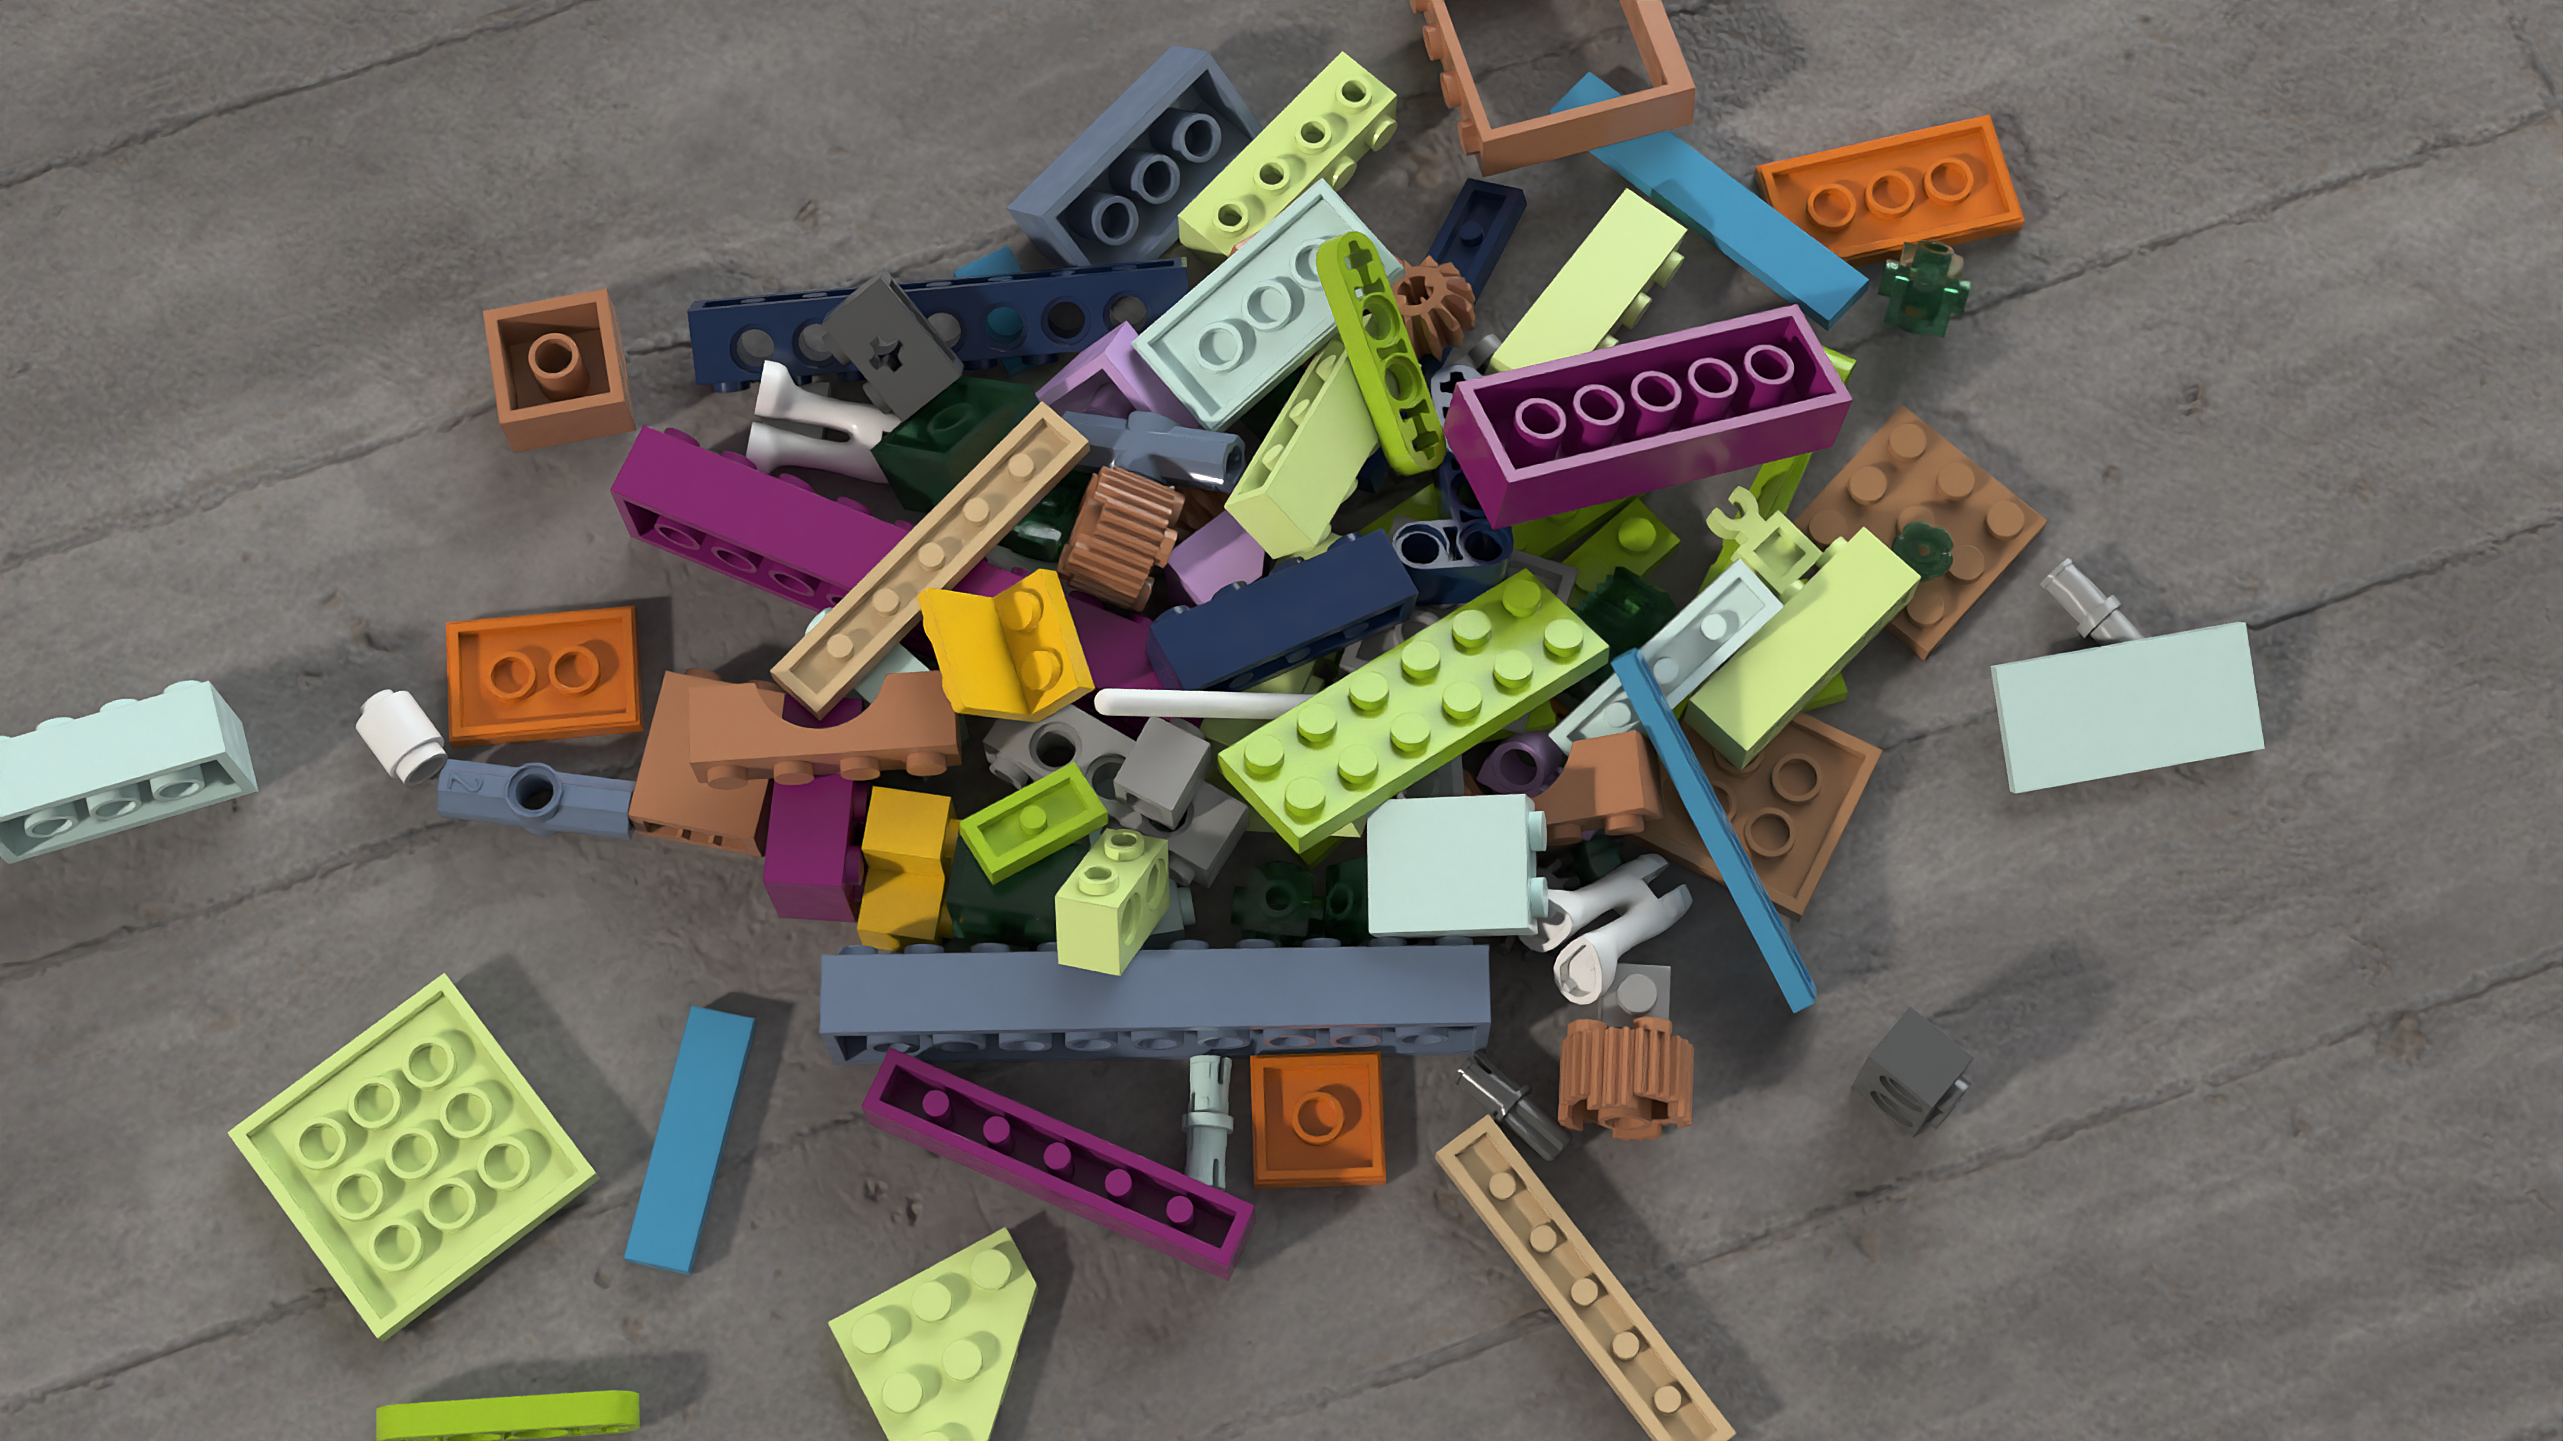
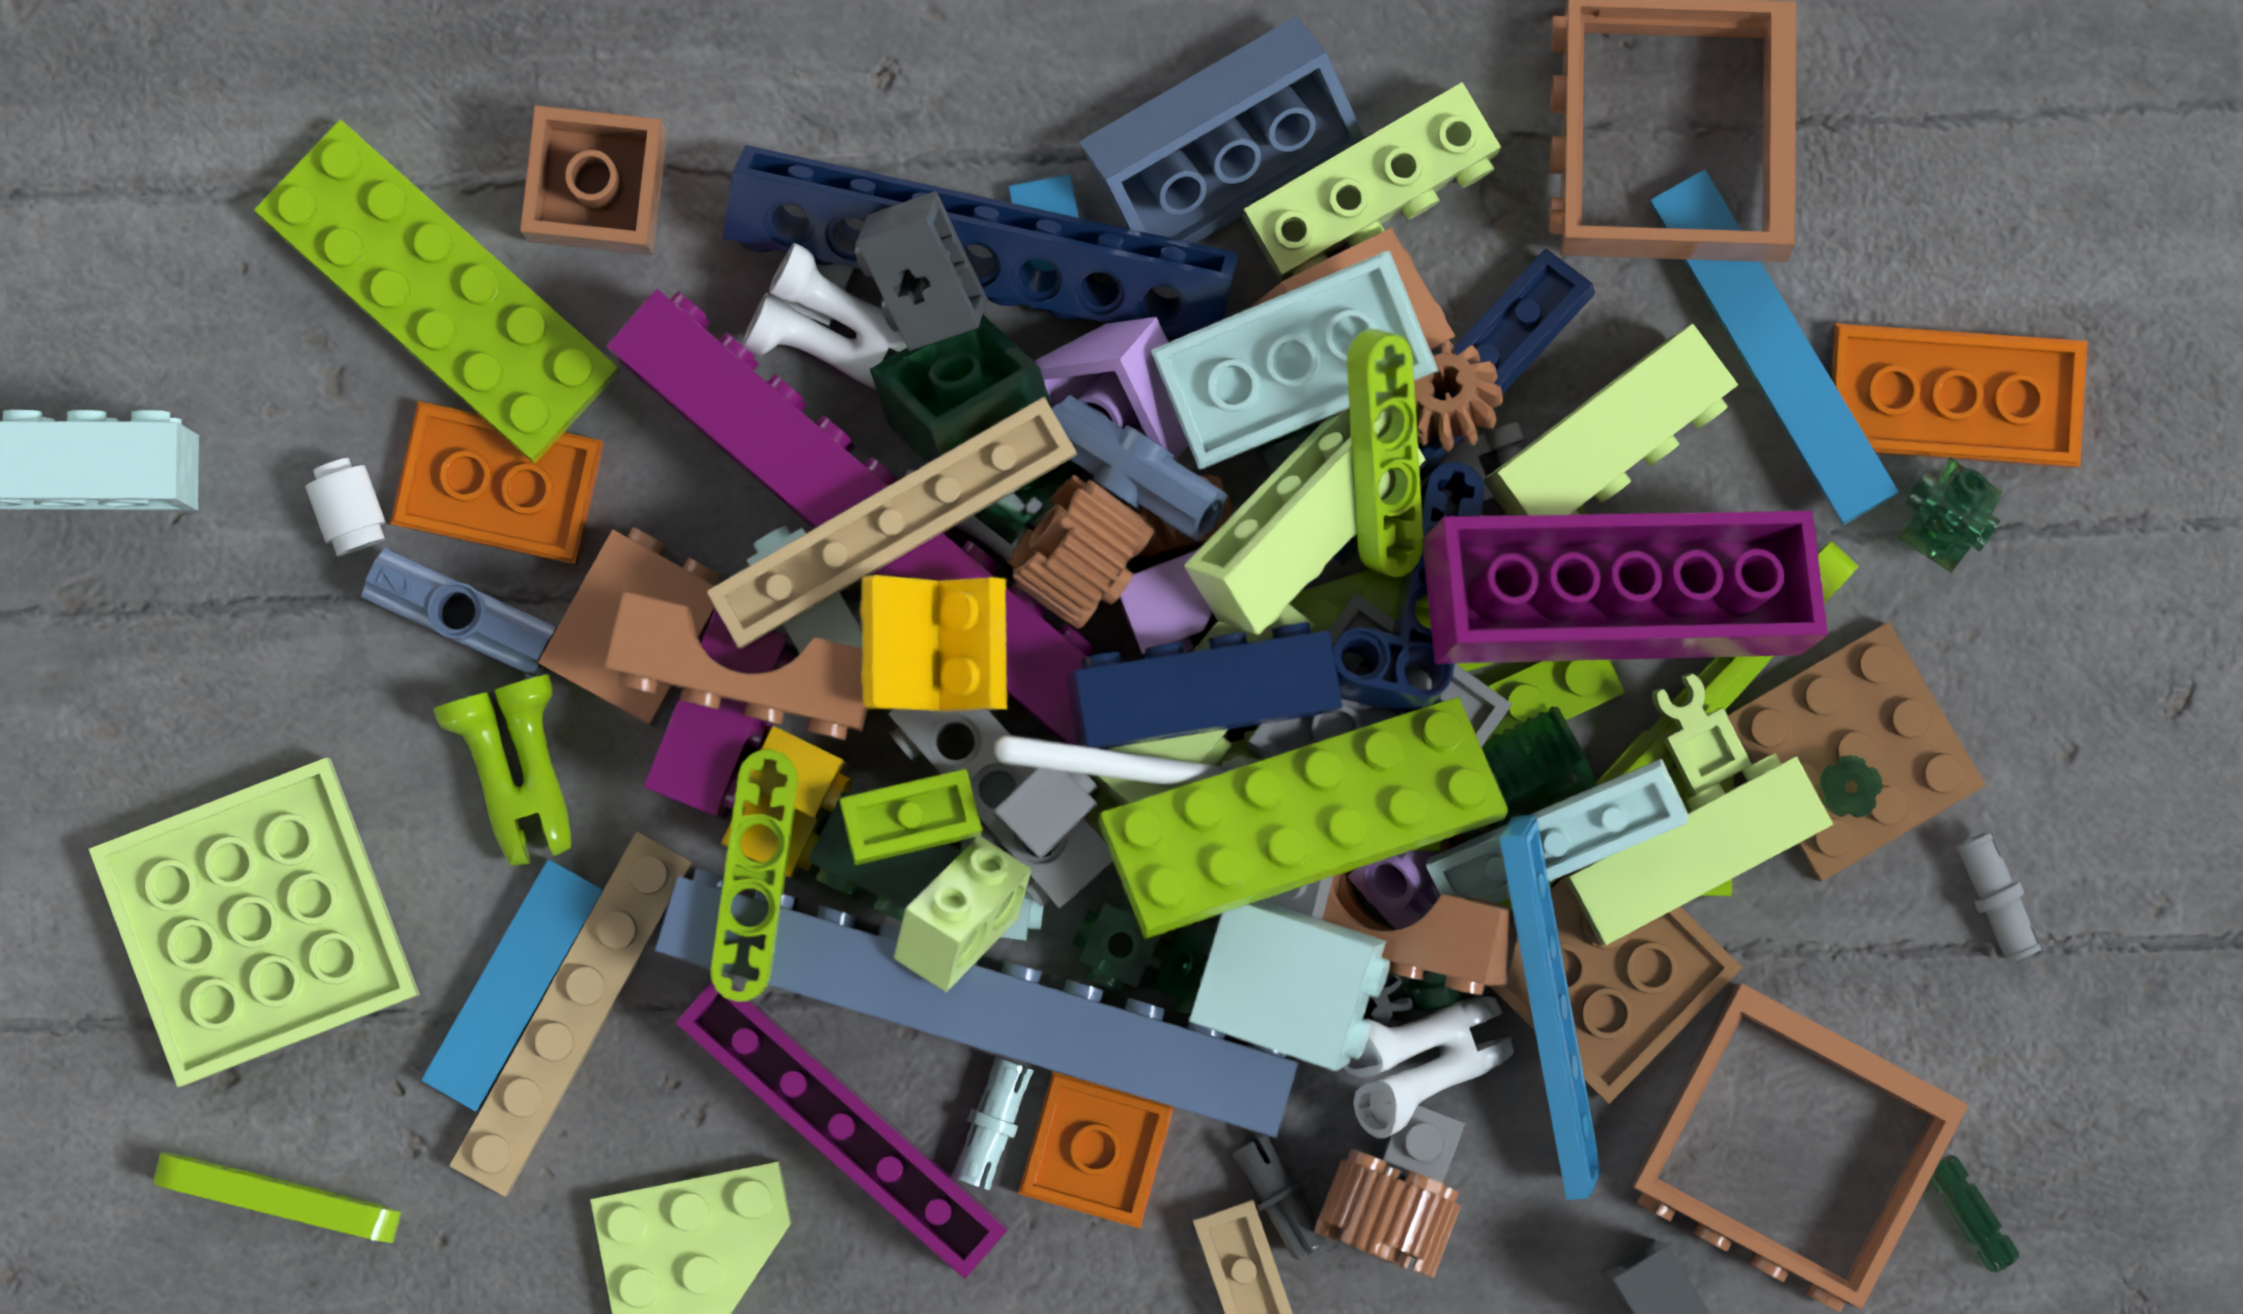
camera: 15 degrees right, 15 degrees up
(438, 518) = (437, 291): none -> lime plate
(624, 864) = (505, 802): none -> lime piece
(755, 1157) = (570, 1015): none -> tan plate
(897, 926) = (763, 876): none -> lime beam
(2022, 806) = (1770, 1256): none -> nougat window
(2127, 707) = (1991, 998): light aqua tile -> none
(2187, 915) = (1974, 1214): none -> clear green axle

